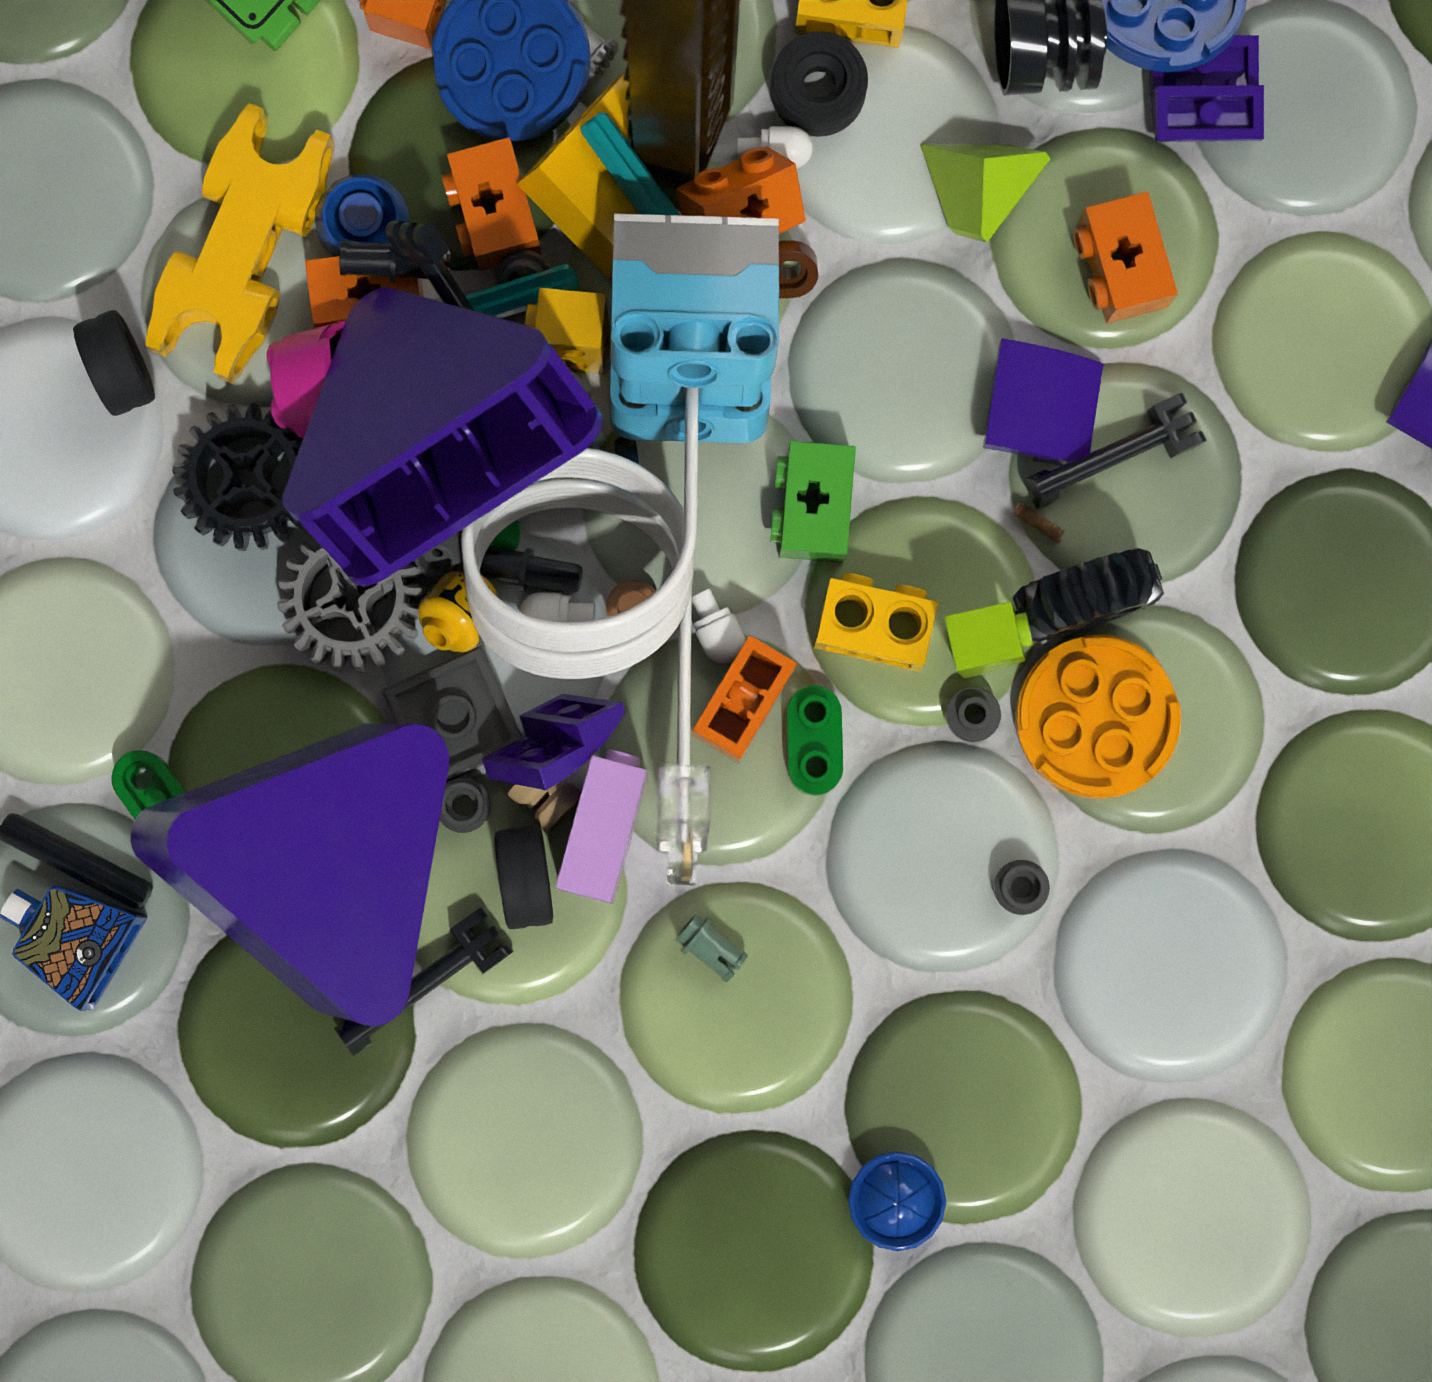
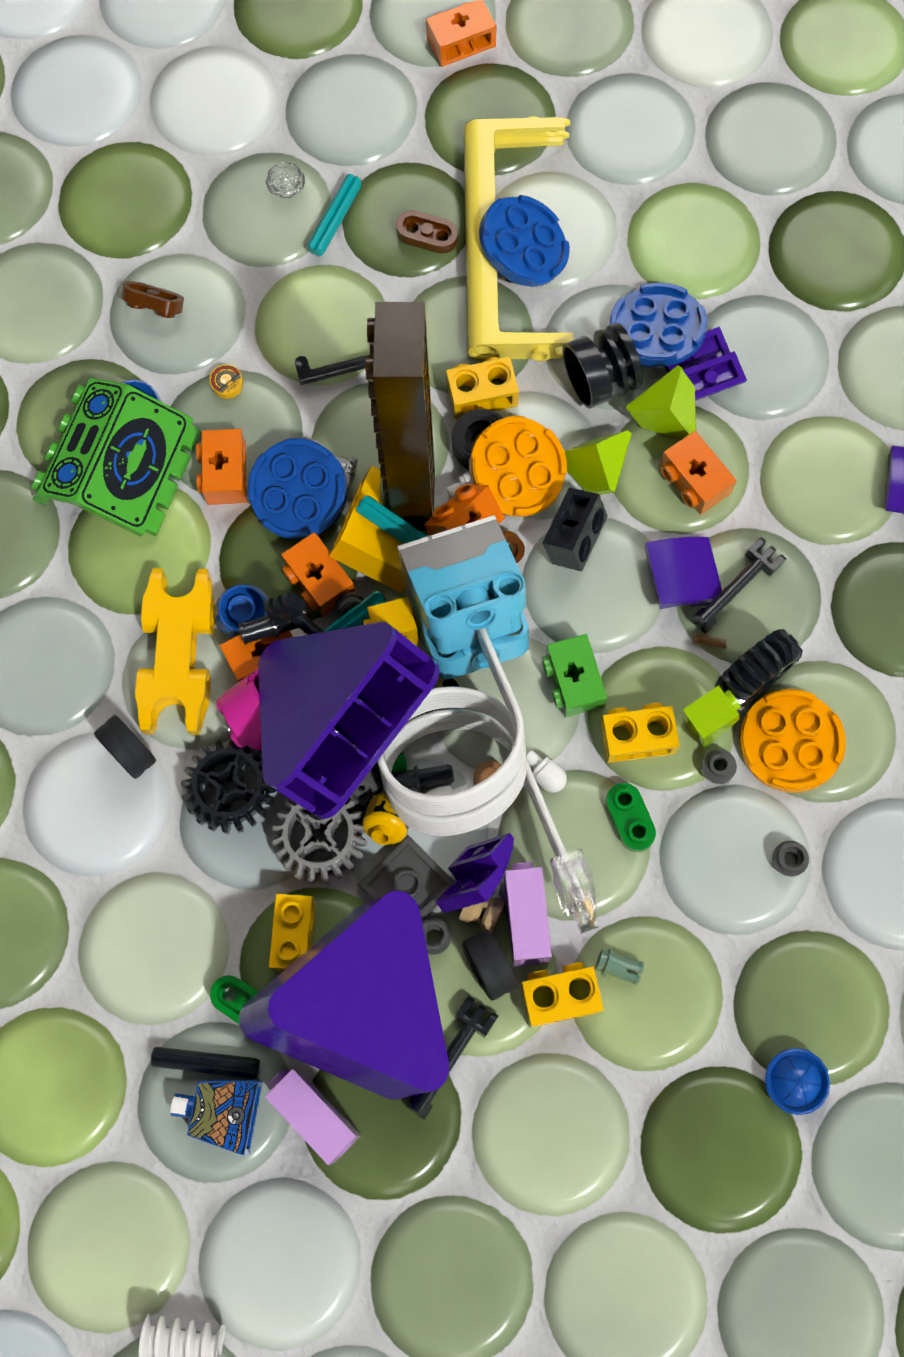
camera: 10 degrees left, 10 degrees down
(194, 992) = (311, 1115): none -> lavender brick
(261, 721) = (291, 929): none -> yellow brick
(609, 972) = (564, 1005): none -> yellow brick
(744, 699) = (580, 806): orange brick -> none
(859, 146) = (519, 464): none -> light orange tile
(904, 278) = (575, 529): none -> black brick
(1124, 135) = (667, 406): none -> lime slope

